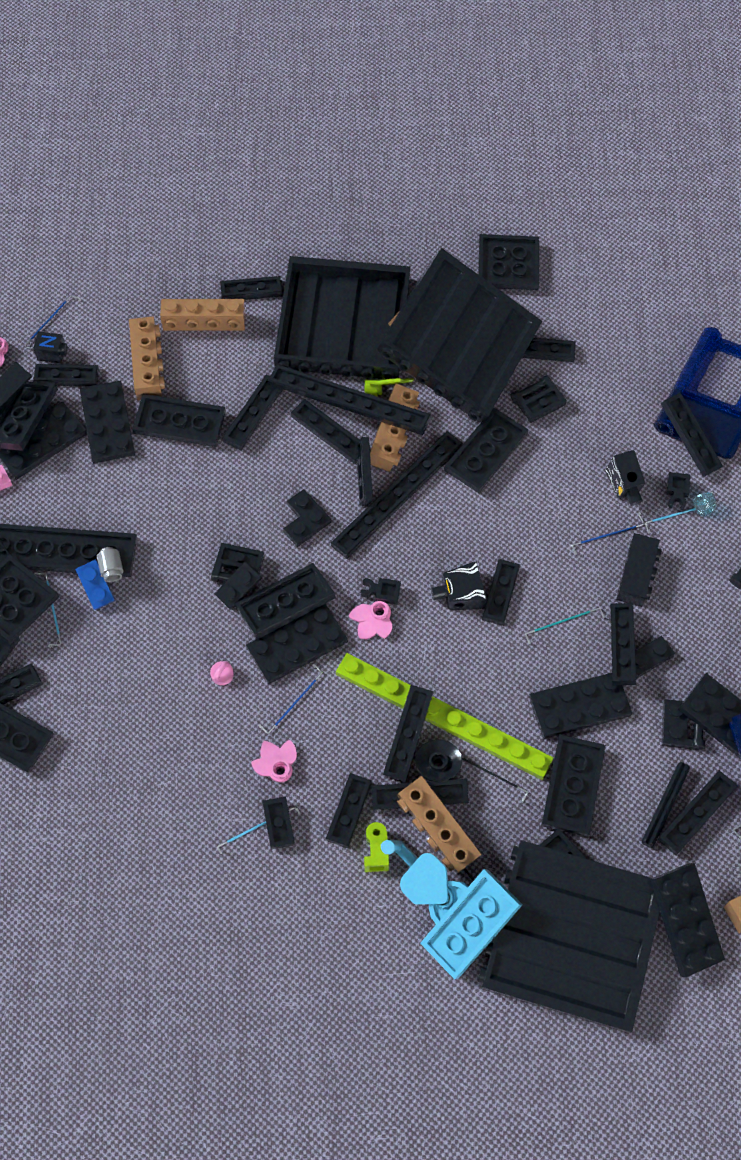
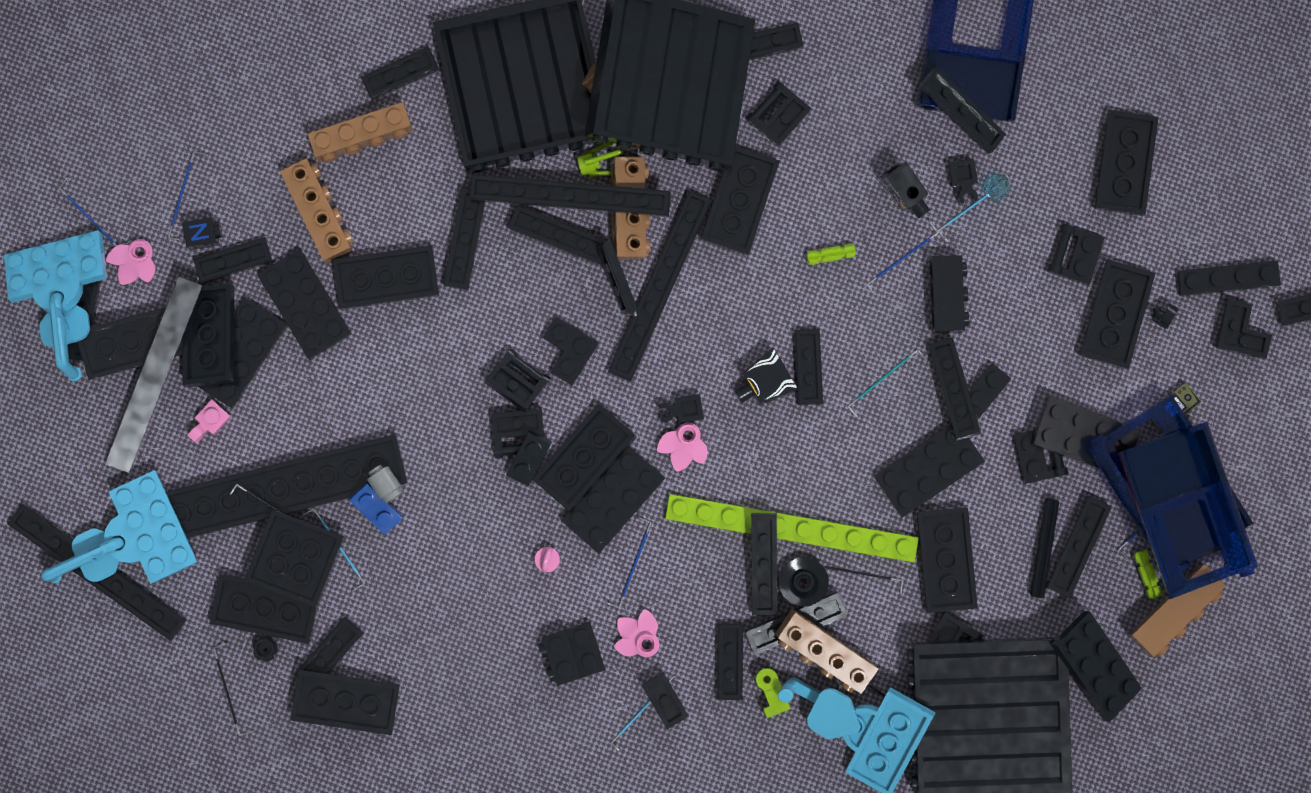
camera: 20 degrees left, 20 degrees up
(211, 757) = (572, 654): none -> black plate
(248, 527) = (512, 385): none -> black plate
(547, 511) = (831, 254): none -> lime axle

